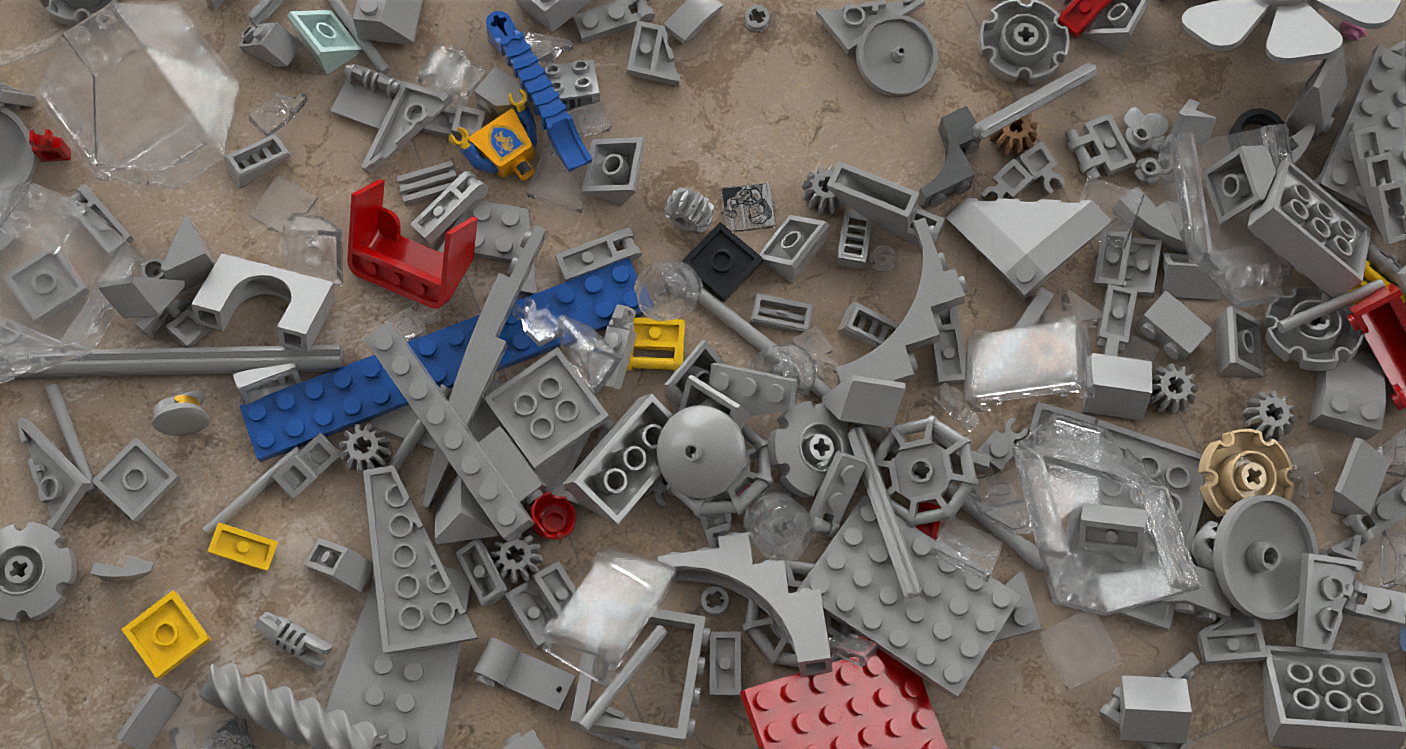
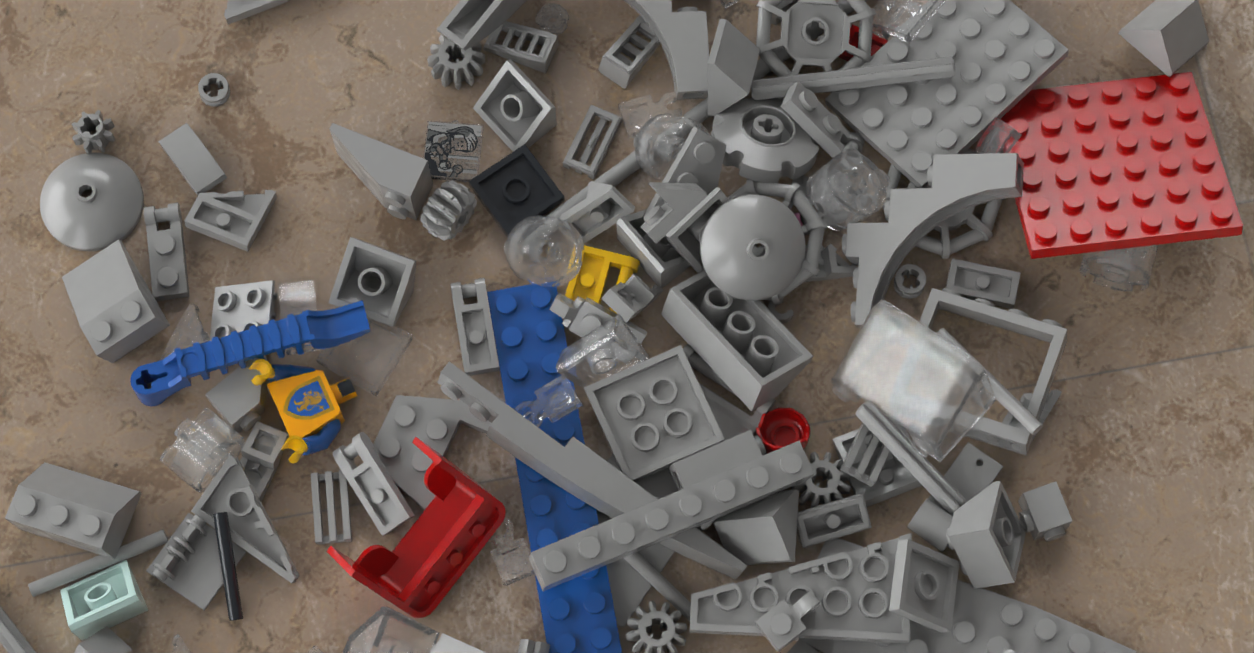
camera: 75 degrees left, 0 degrees up
(365, 117) = (228, 566): none -> black bar
(379, 544) = (783, 623): none -> light grey plate
(429, 655) = (924, 585): none -> light grey plate
(487, 705) = (987, 537): none -> light grey slope
(525, 584) = (880, 460): none -> light grey tile
(535, 641) = (909, 457): none -> light grey axle
(643, 368) = (631, 297): none -> light grey slope
(706, 153) = (392, 175): none -> light grey slope
(714, 325) = (598, 211): none -> light grey slope
(724, 377) = (679, 200): none -> light grey slope

